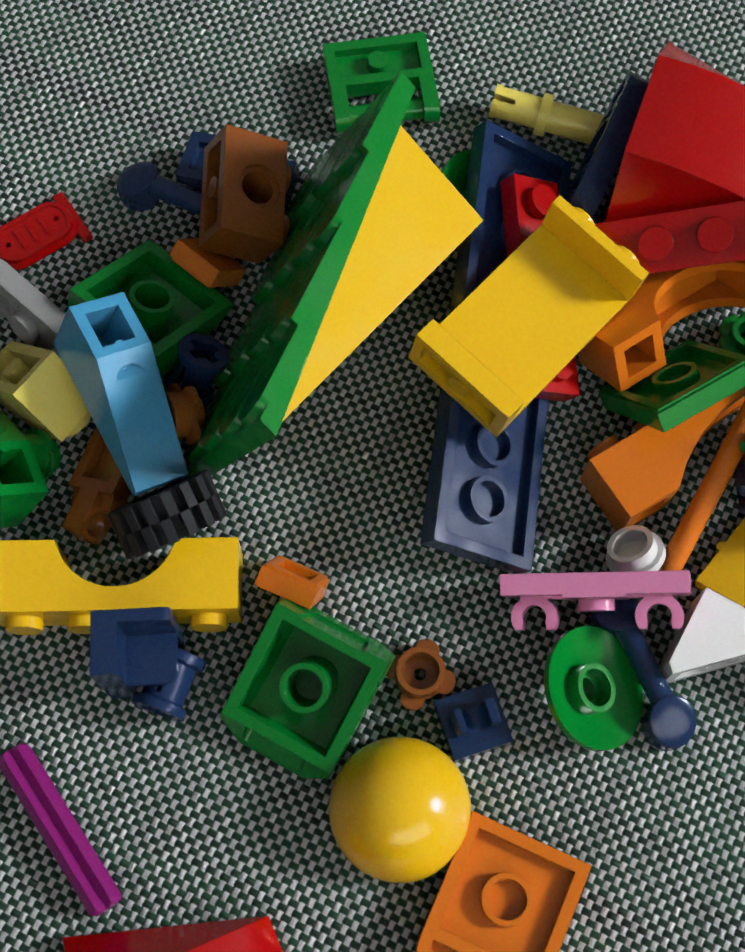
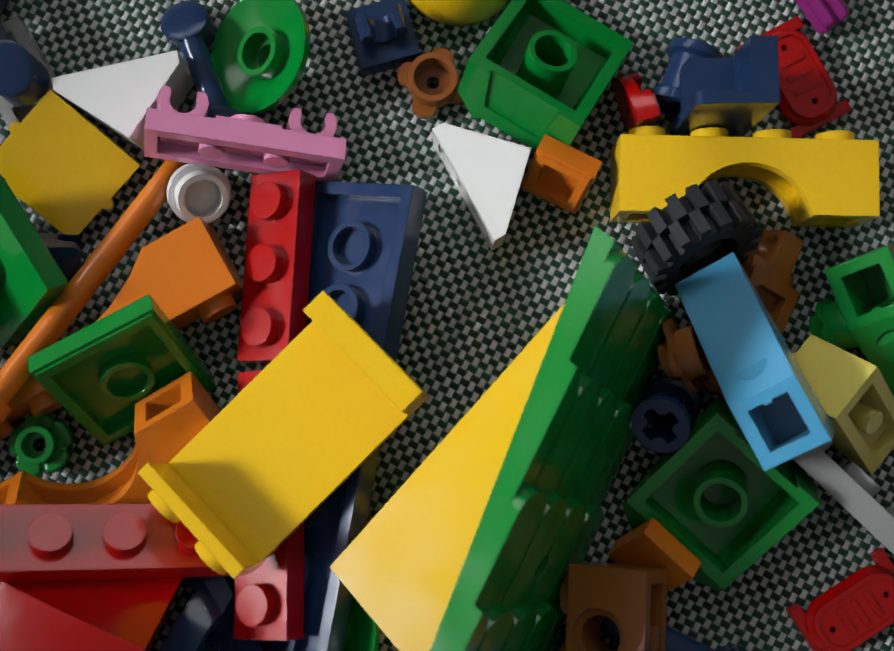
camera: 175 degrees left, 15 degrees up
(55, 699) = (804, 82): none -> red piece
(218, 658) = (635, 105): none -> red tile
(364, 579) = (485, 174): none -> white slope
(554, 487) = (276, 263): none -> red plate

